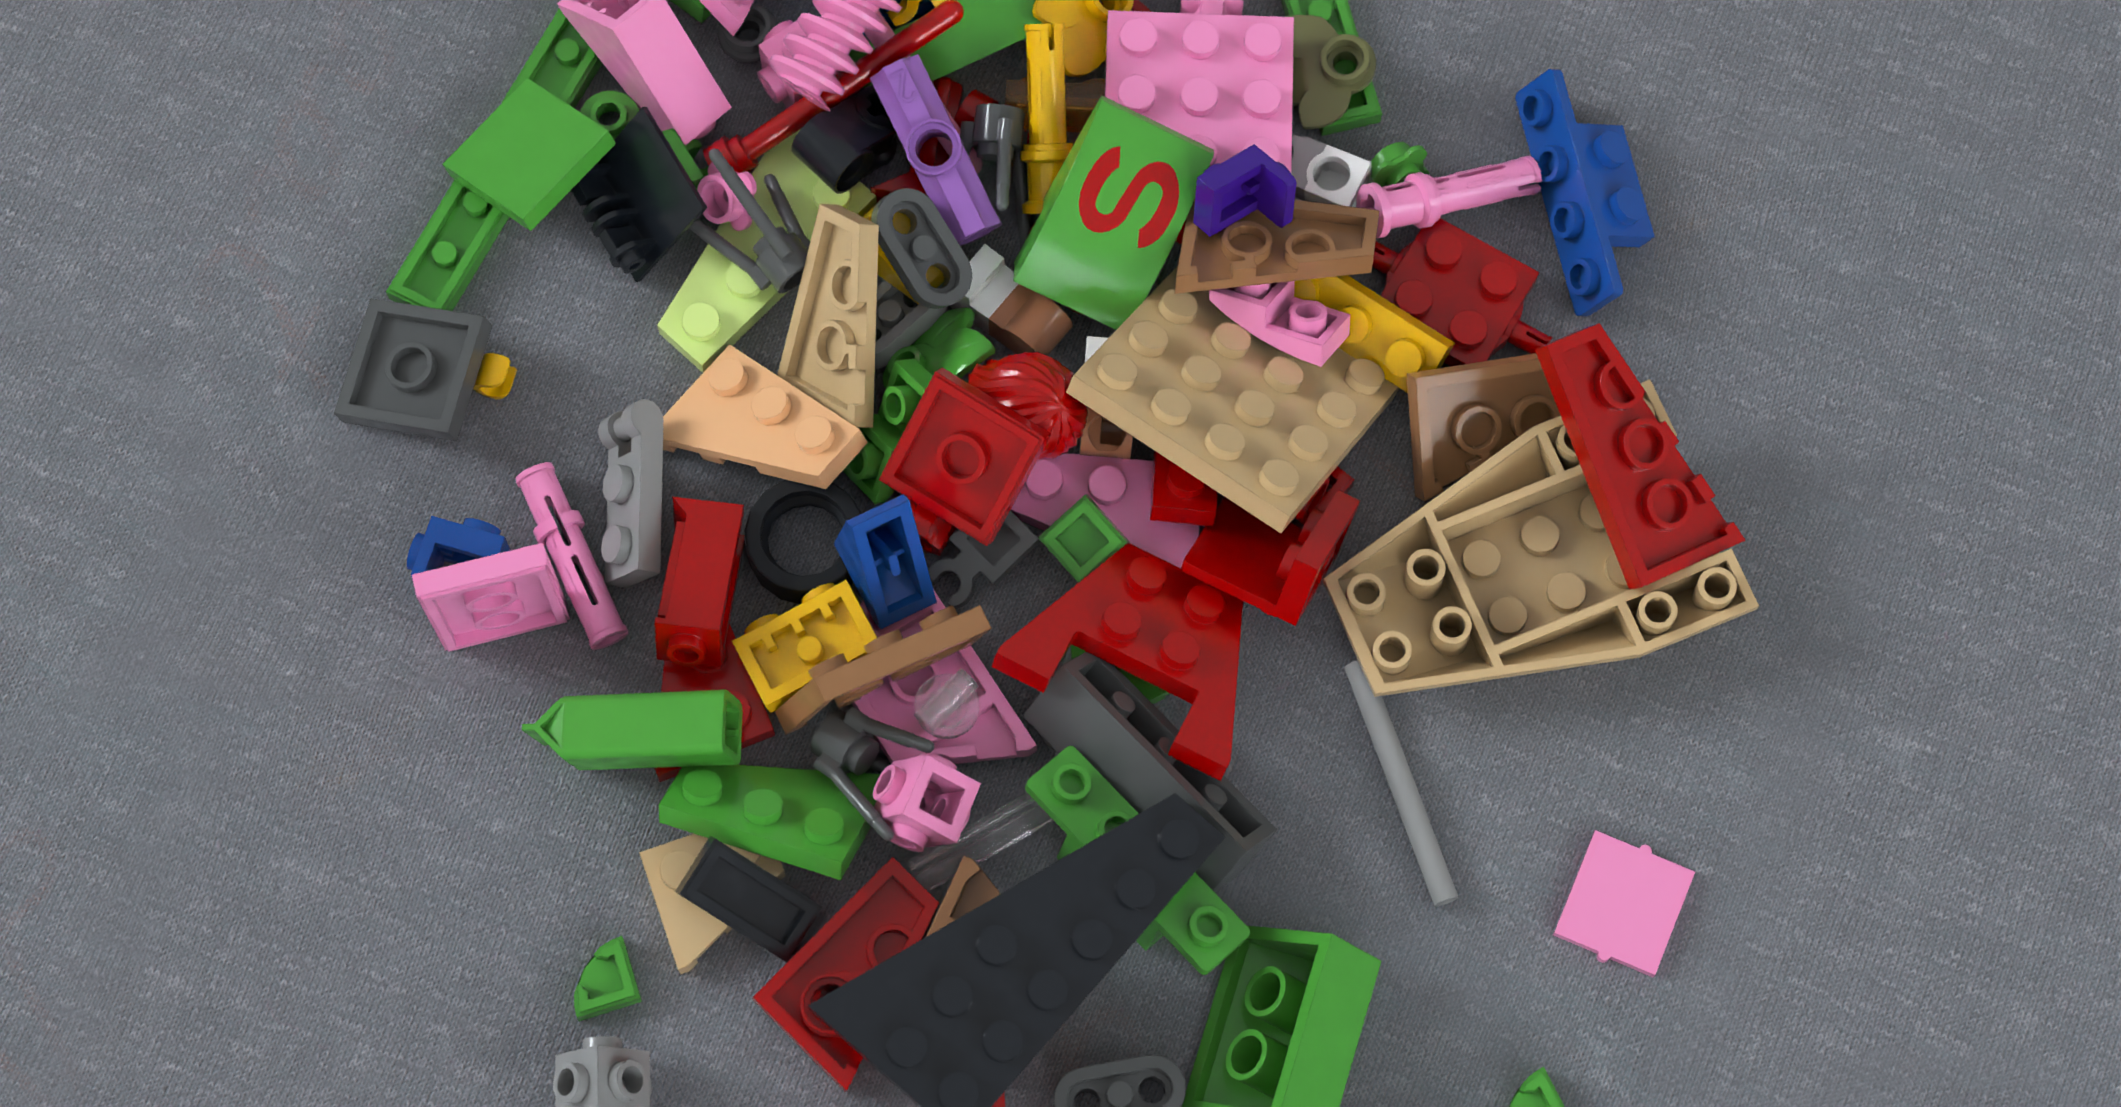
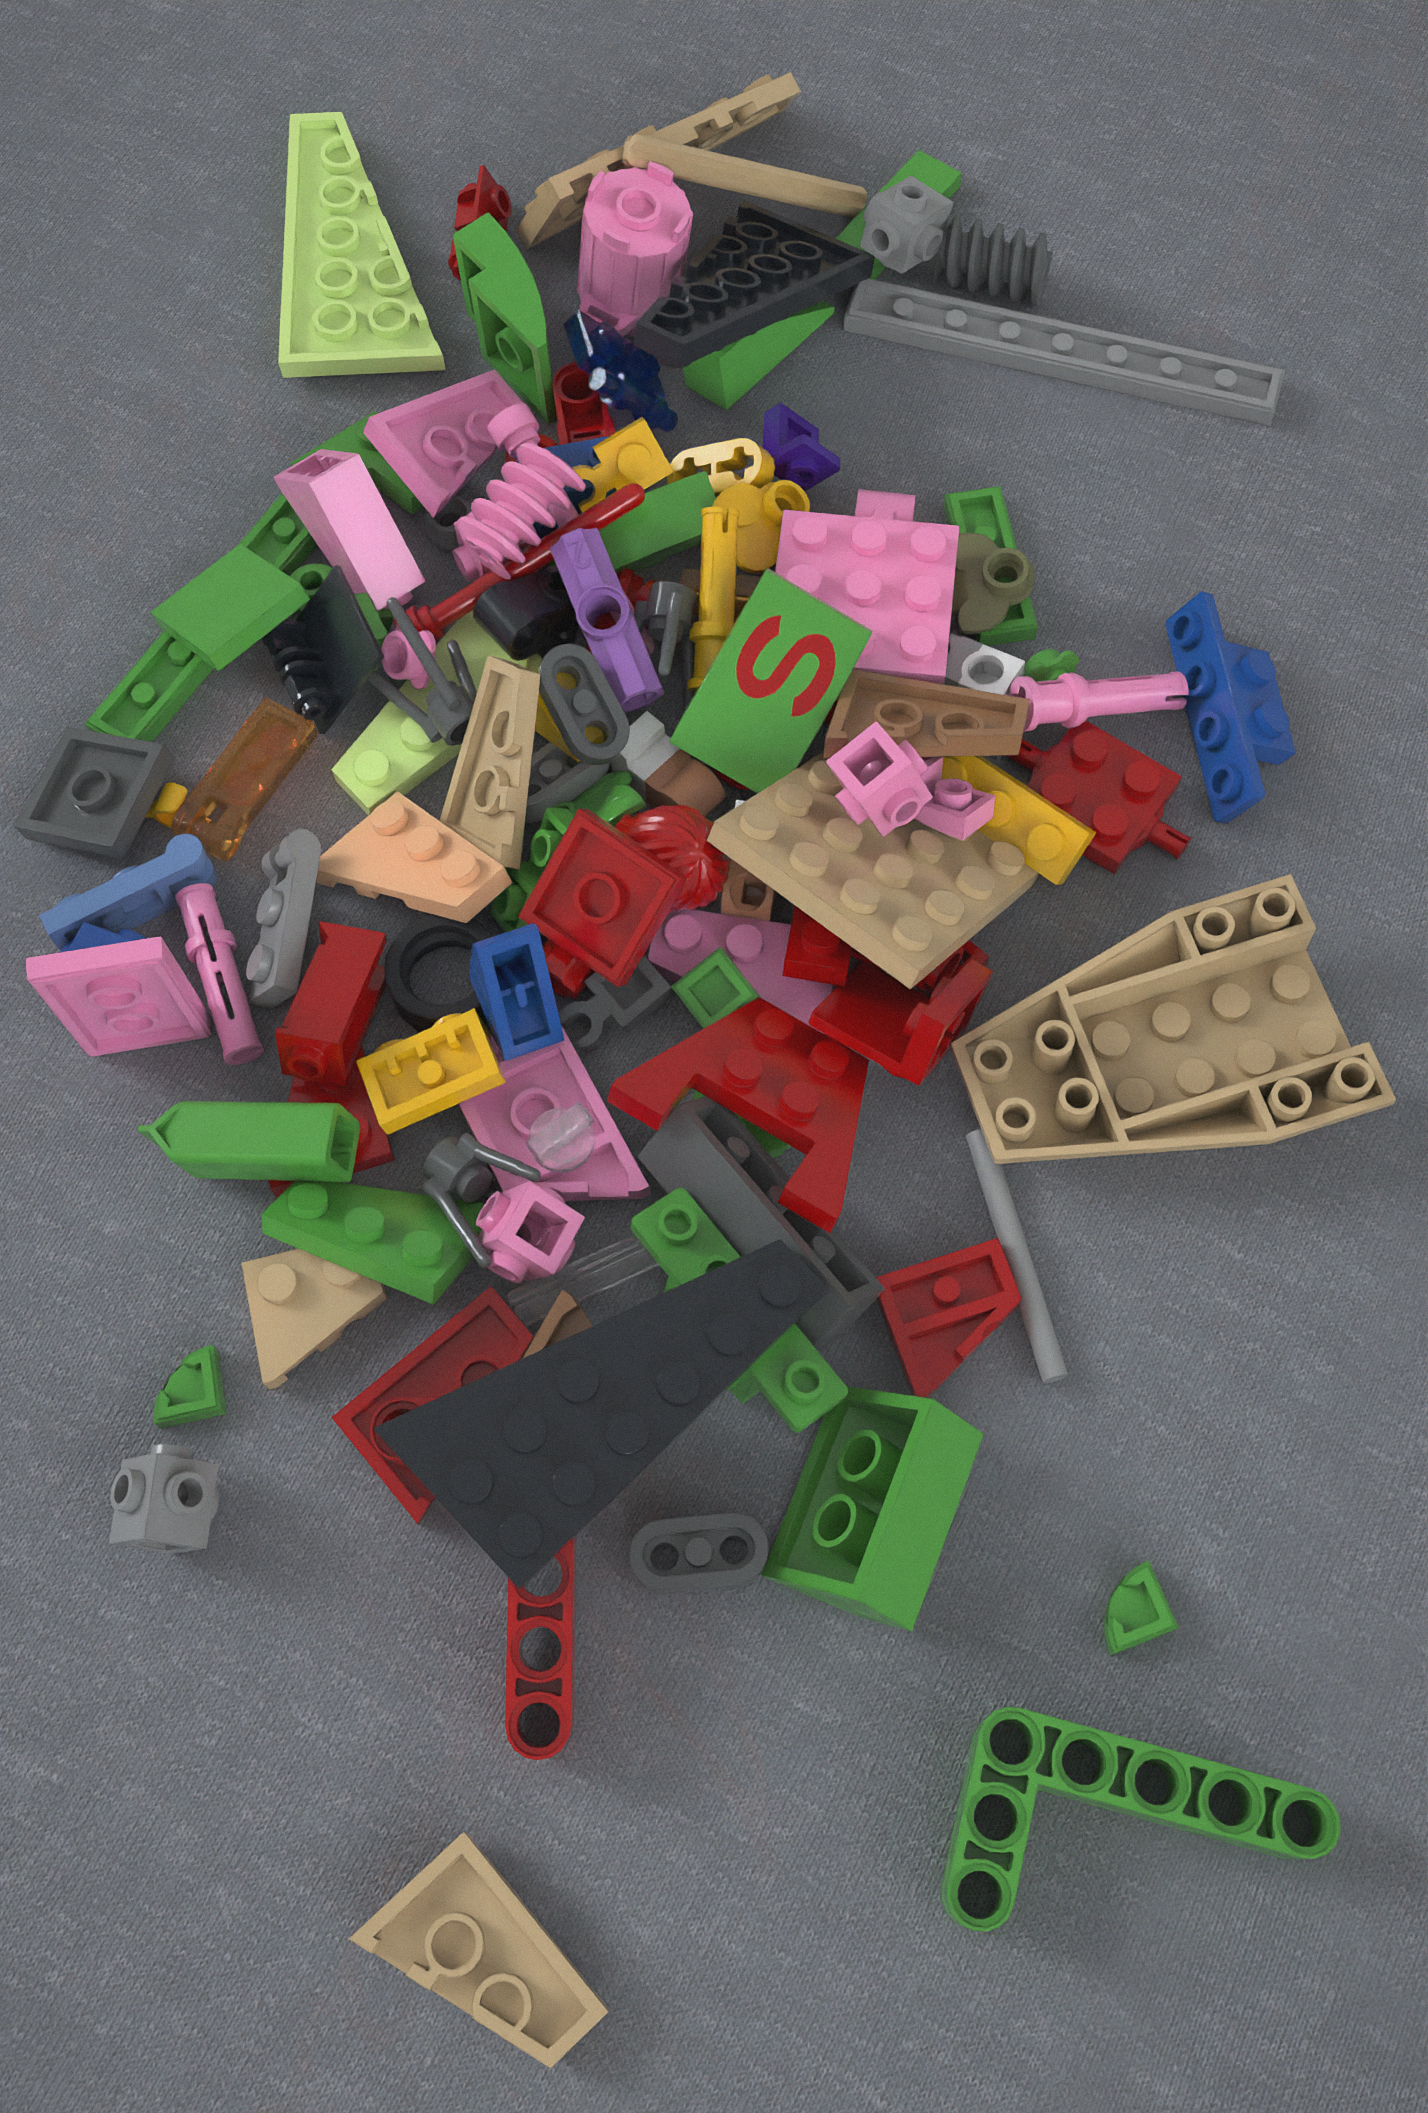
camera: 10 degrees right, 5 degrees down
(470, 479) = (133, 893): none -> medium blue plate
(567, 340) = (244, 777): none -> clear orange plate
(748, 899) = (341, 1317): black tile -> none
(887, 655) = (522, 1086): medium nougat wing -> none
(1235, 318) = (880, 780): none -> bright pink brick
(1242, 186) = (896, 664): dark purple bracket -> none
(1336, 844) = (946, 1311): none -> red wing
(1471, 414) = (1113, 894): medium nougat wing -> none
(1624, 903) = (1240, 1396): bright pink piece -> none
(1641, 485) = (1280, 976): red wing -> none

